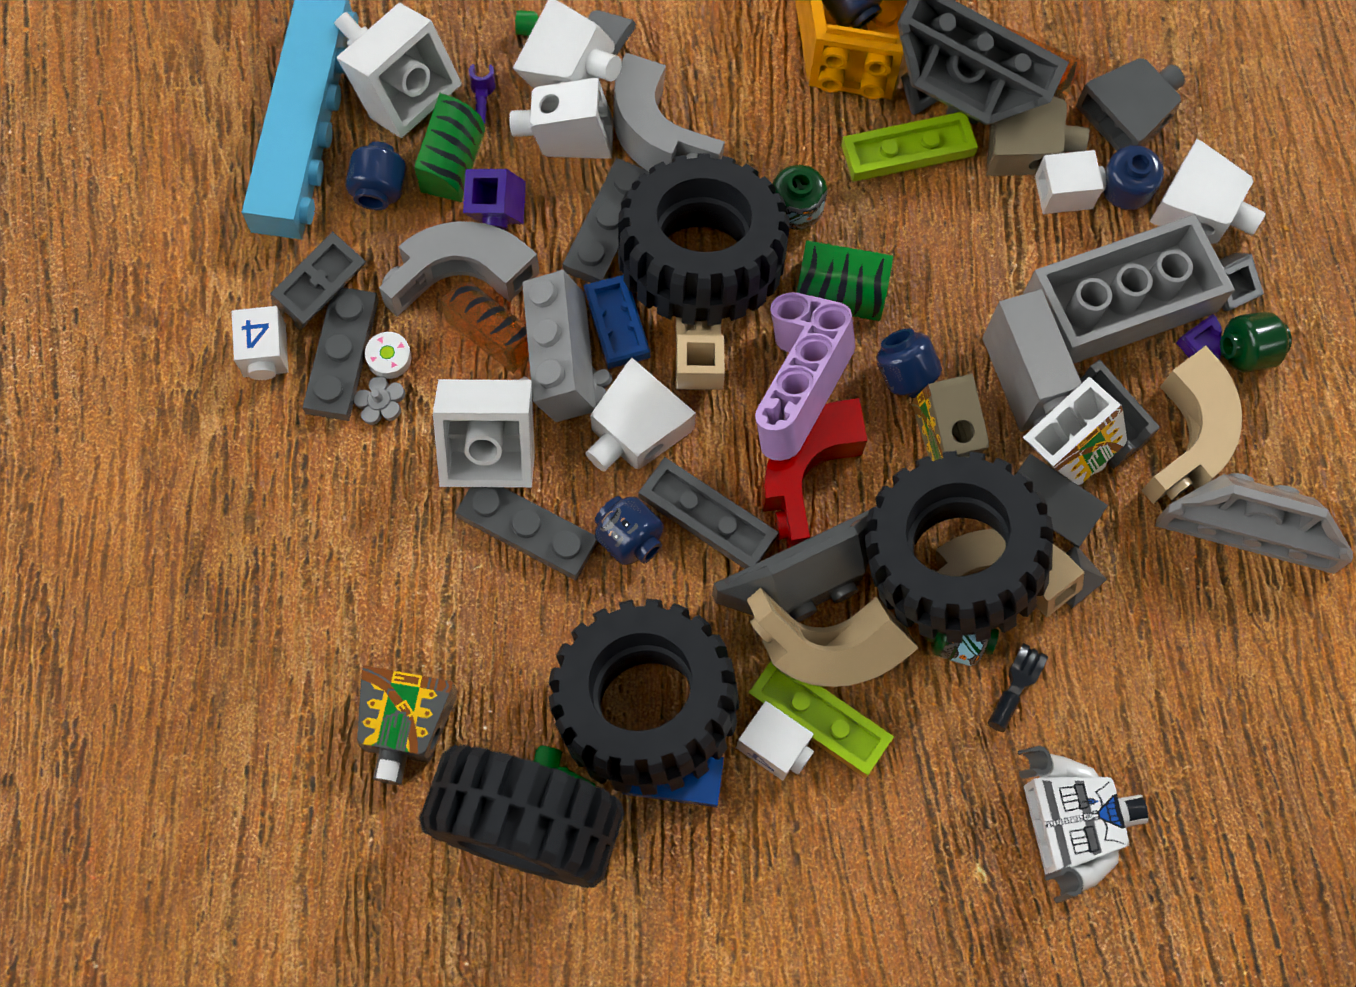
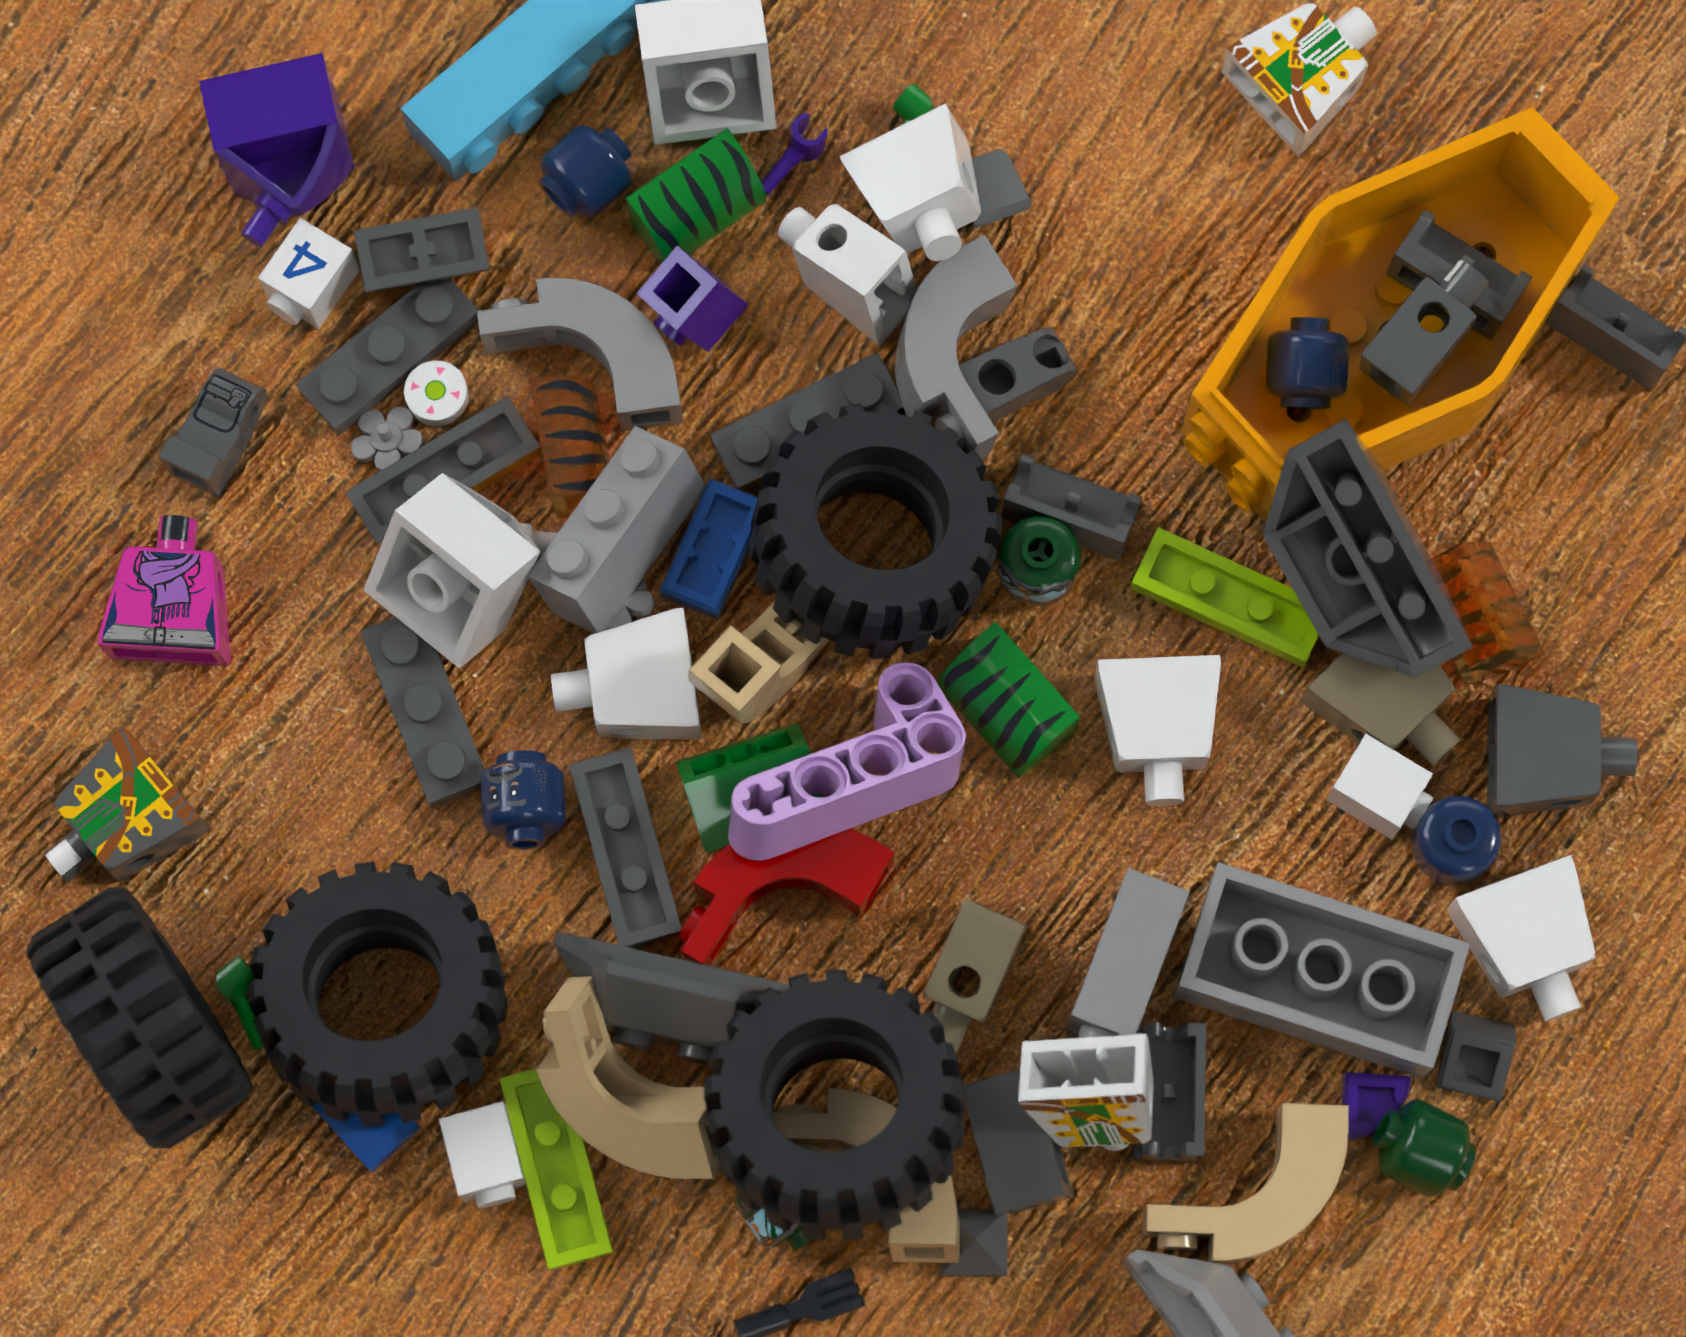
camera: 45 degrees right, 5 degrees up
(180, 275) = (278, 138): none -> dark purple piece
(276, 468) = (215, 432): none -> dark grey leg
(329, 579) = (168, 601): none -> torso
(441, 357) = (471, 453): none -> dark grey plate
(703, 108) = (1019, 372): none -> dark grey leg
(732, 436) = (716, 773): none -> green brick
(808, 151) = (1092, 512): none -> dark grey hinge
(908, 362) = (992, 855): dark blue head -> none
(929, 231) = (1159, 718): none -> white torso

